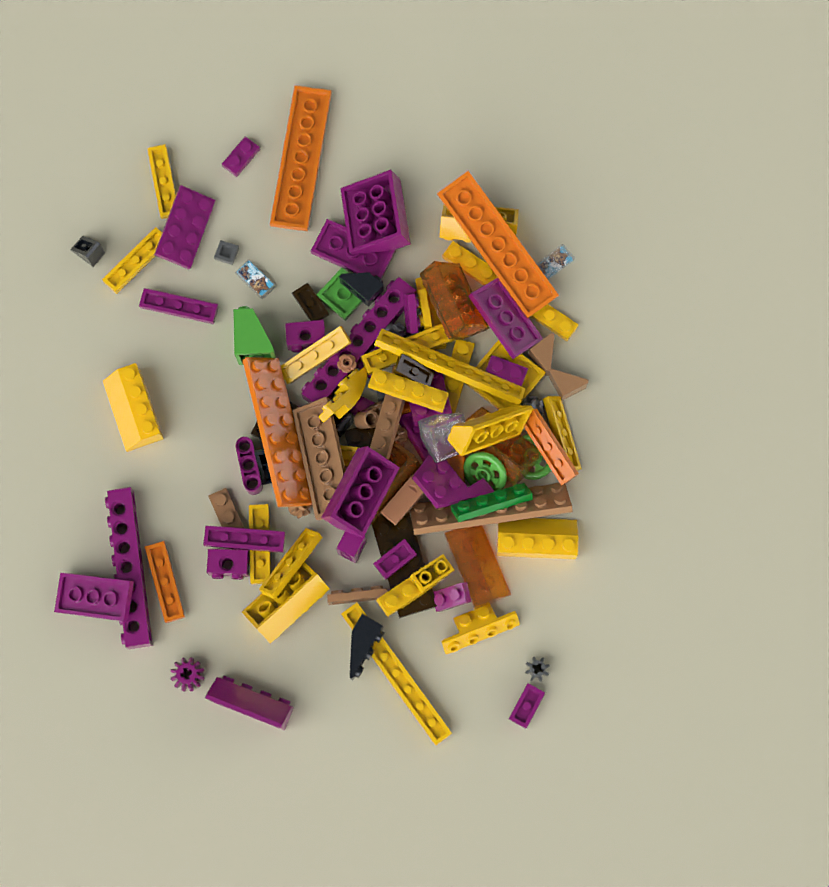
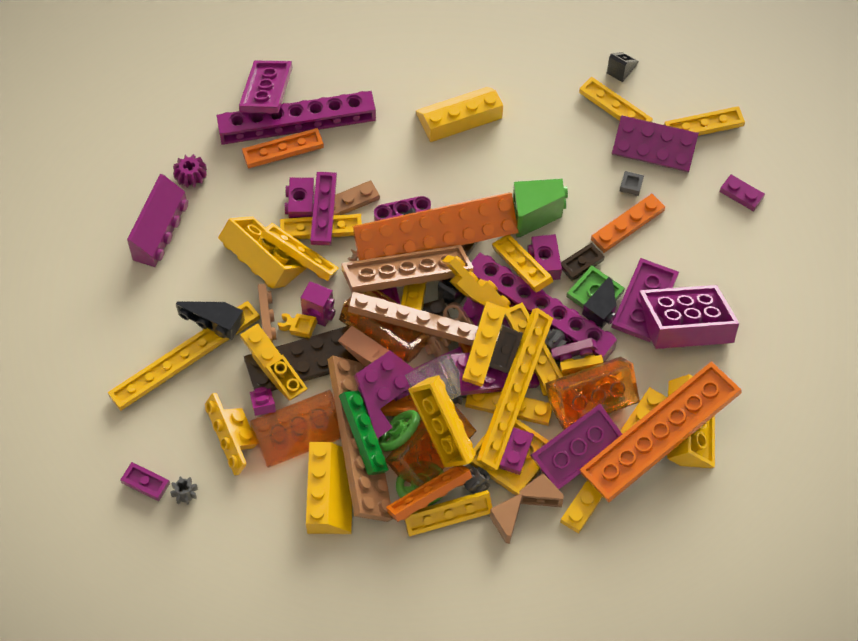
camera: 85 degrees right, 15 degrees down
(178, 306) = (569, 144): magenta plate -> none
(255, 279) = (605, 211): tile -> none
(268, 260) = (627, 223): none -> orange plate
(300, 158) = (747, 246): orange plate -> none
(346, 358) = (513, 295): nougat plate -> none
(360, 492) = (363, 290): magenta slope -> none
(366, 565) = (300, 326): none -> yellow plate
(395, 559) = (302, 344): magenta plate -> none
(555, 261) = (653, 505): clear tile -> none

